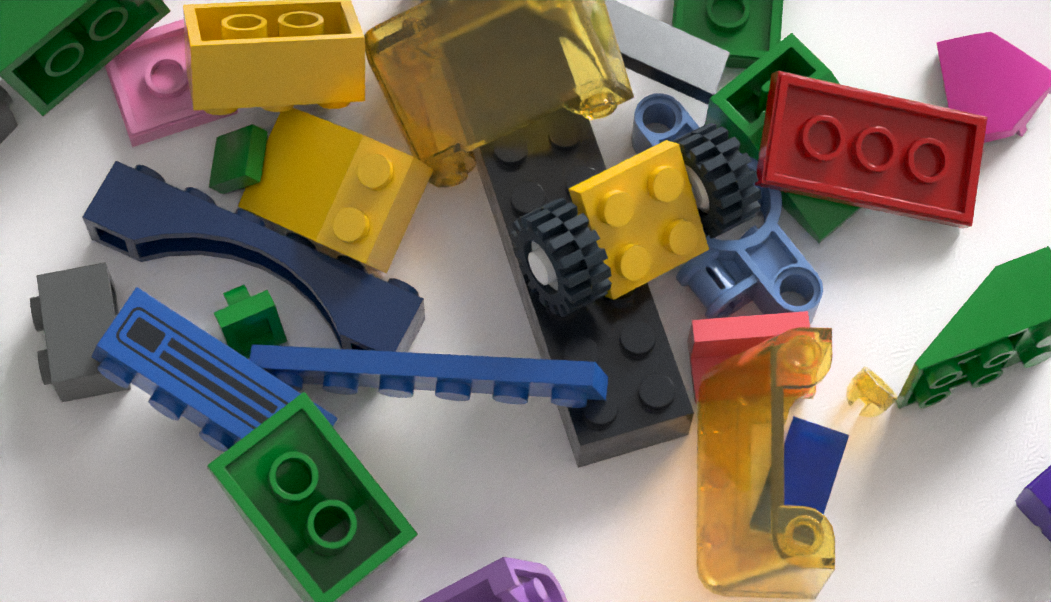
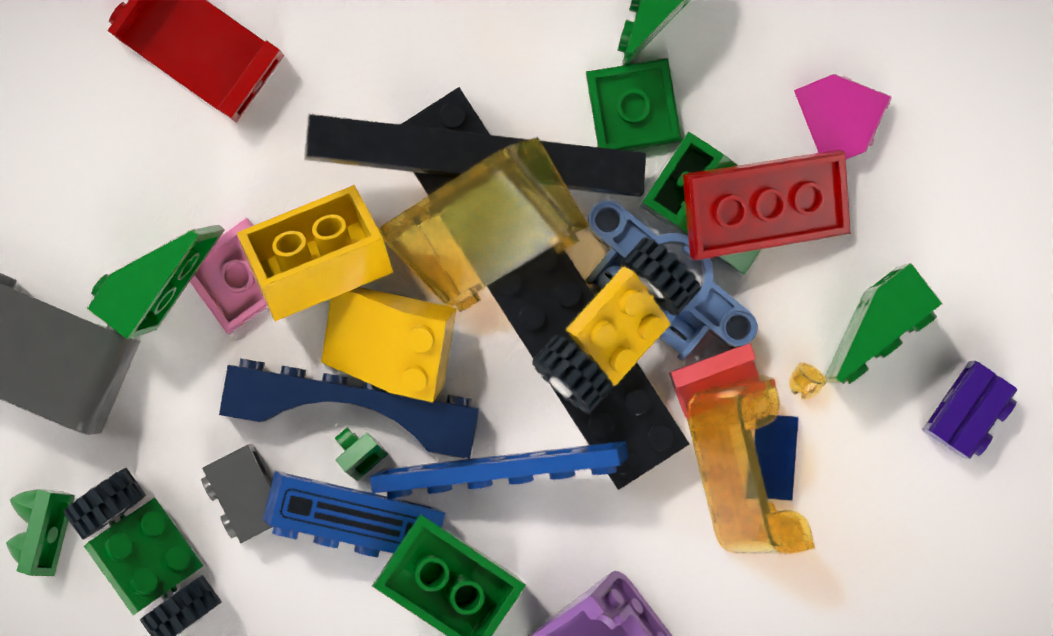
camera: 15 degrees left, 20 degrees up
(238, 159) = (311, 330): green tile -> none

